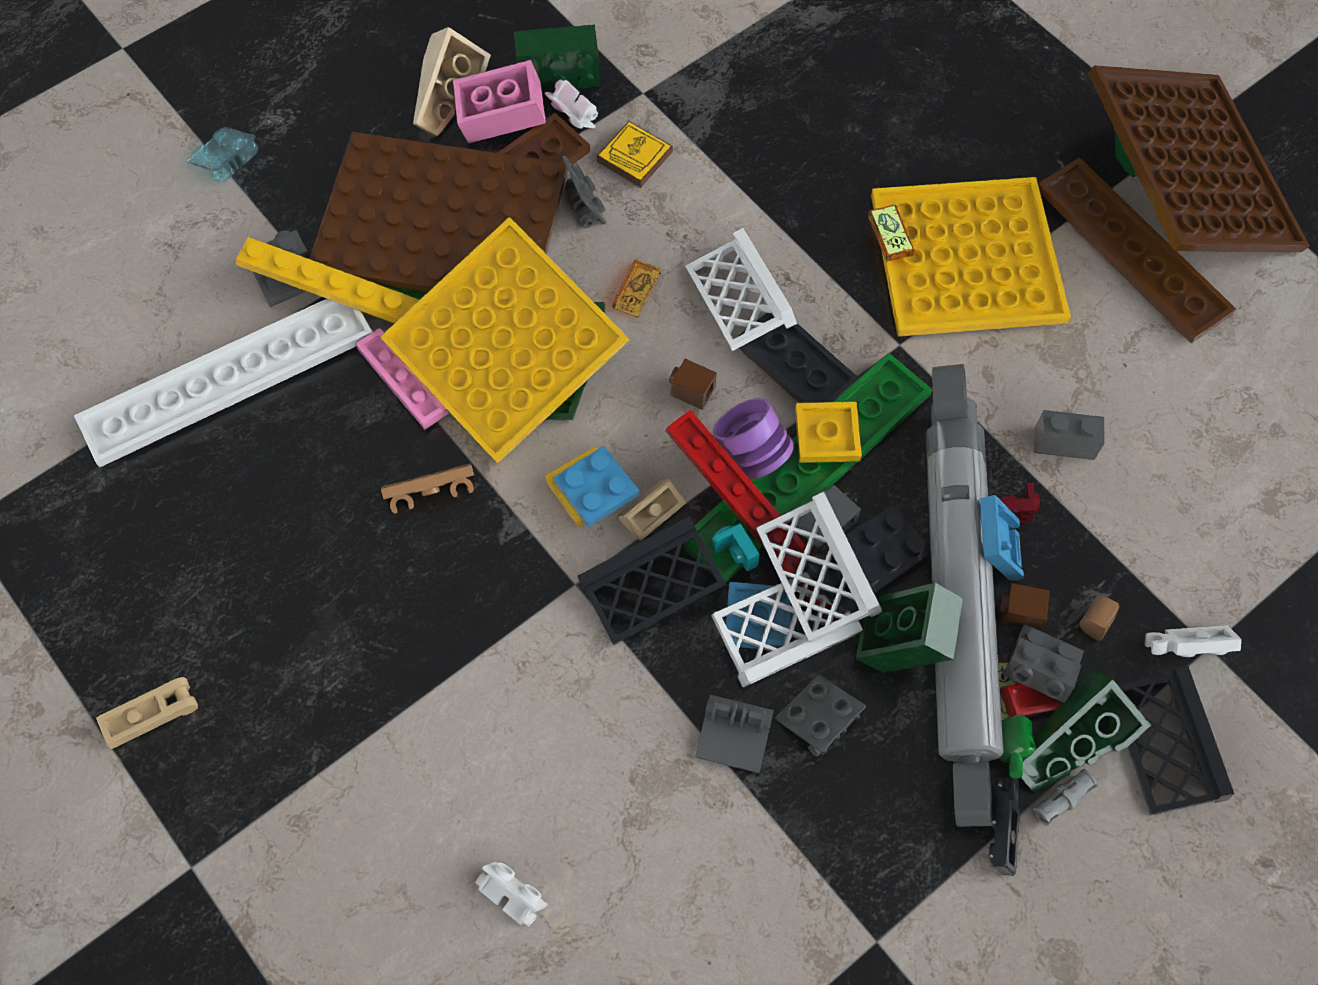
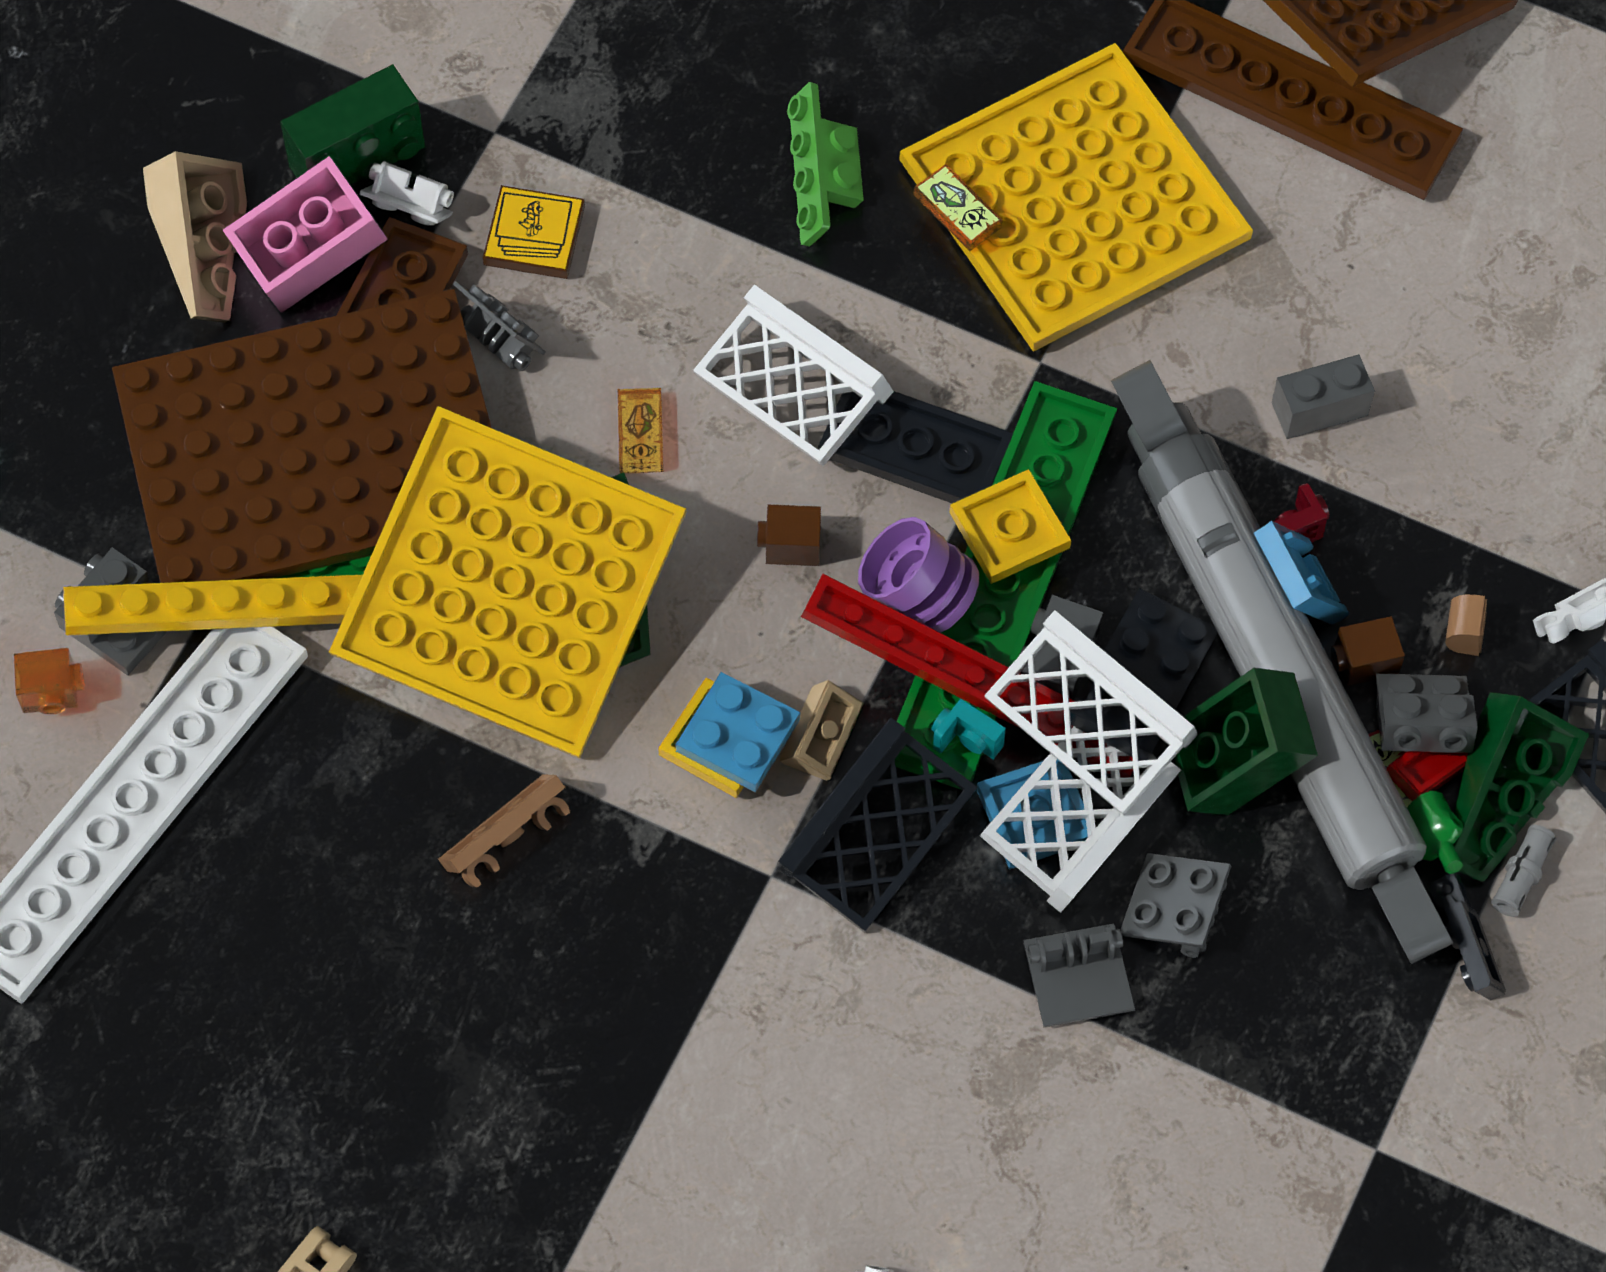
camera: 25 degrees left, 0 degrees up
(219, 289) = (47, 680): none -> clear orange brick
(401, 380) = (383, 699): bright pink plate -> none
(825, 179) = (824, 164): none -> bright green bracket

